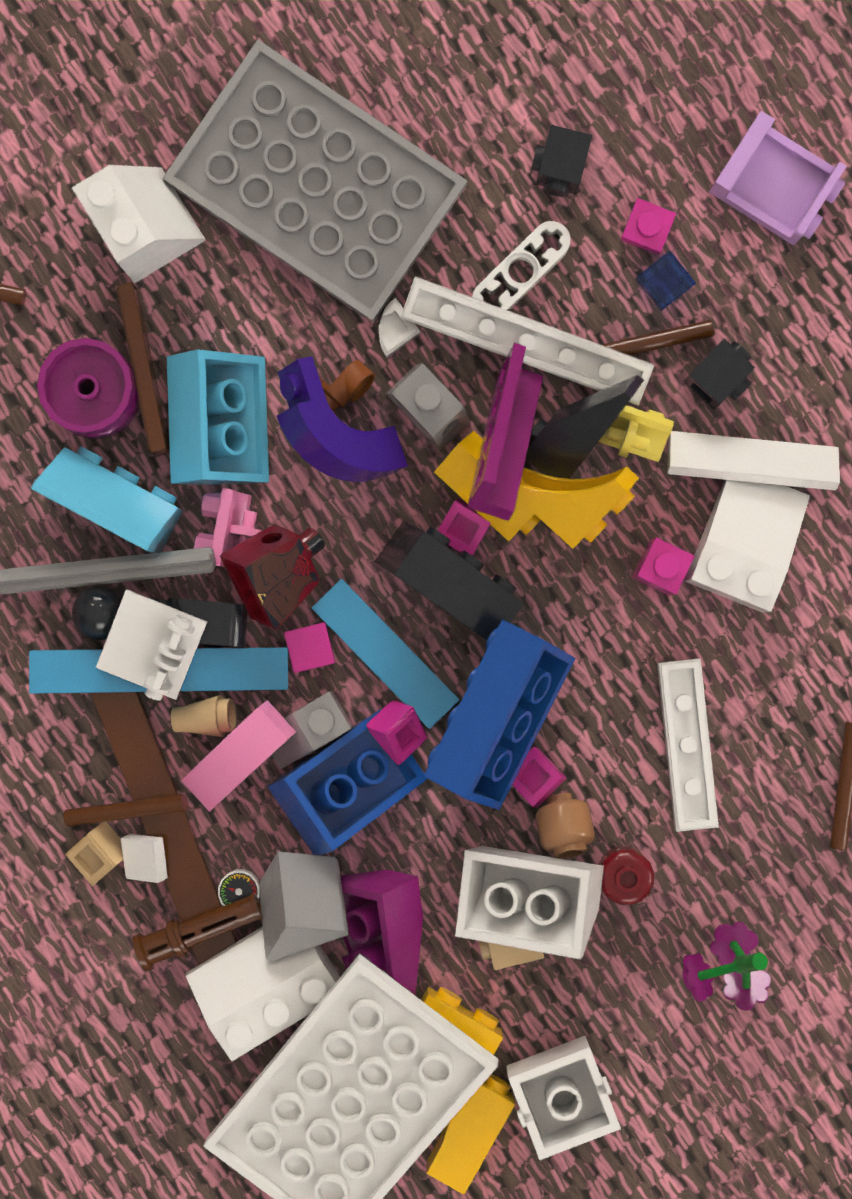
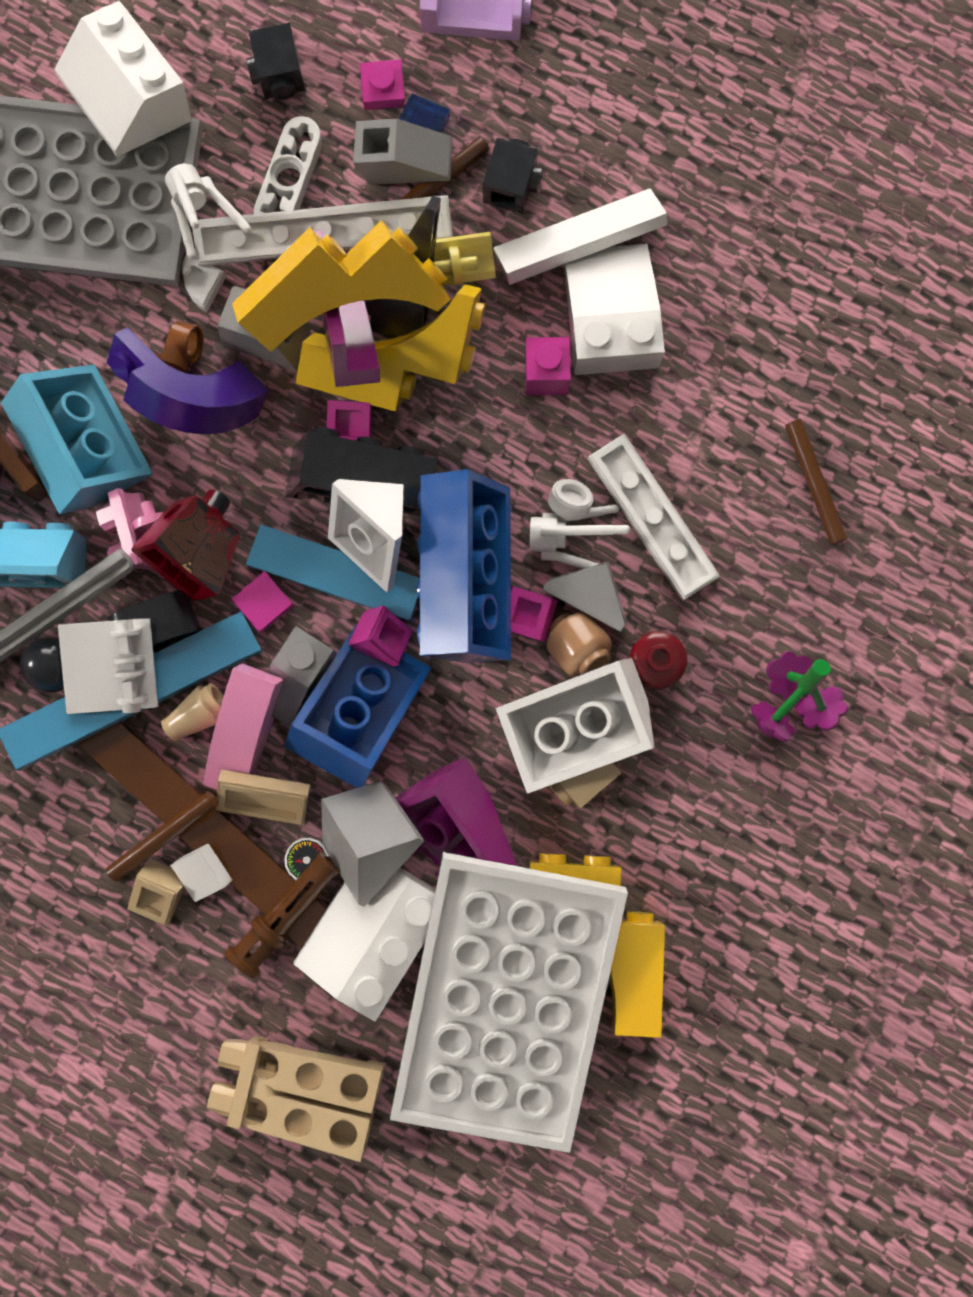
camera: 20 degrees left, 5 degrees down
(137, 1086) = (299, 1095): none -> tan hips
(228, 820) = (262, 797): none -> tan tile
(414, 113) = (122, 80): none -> white slope
(423, 252) = (190, 195): none -> white plant
(435, 638) = (368, 526): none -> white slope
(504, 412) = (320, 276): none -> yellow arch
(562, 1097) = (707, 896): white brick -> none
(589, 716) = (550, 533): none -> white plant
(598, 785) = (592, 592): none -> light grey slope
(623, 694) = (570, 499): none -> white tile
(633, 308) = (401, 152): none -> light grey slope

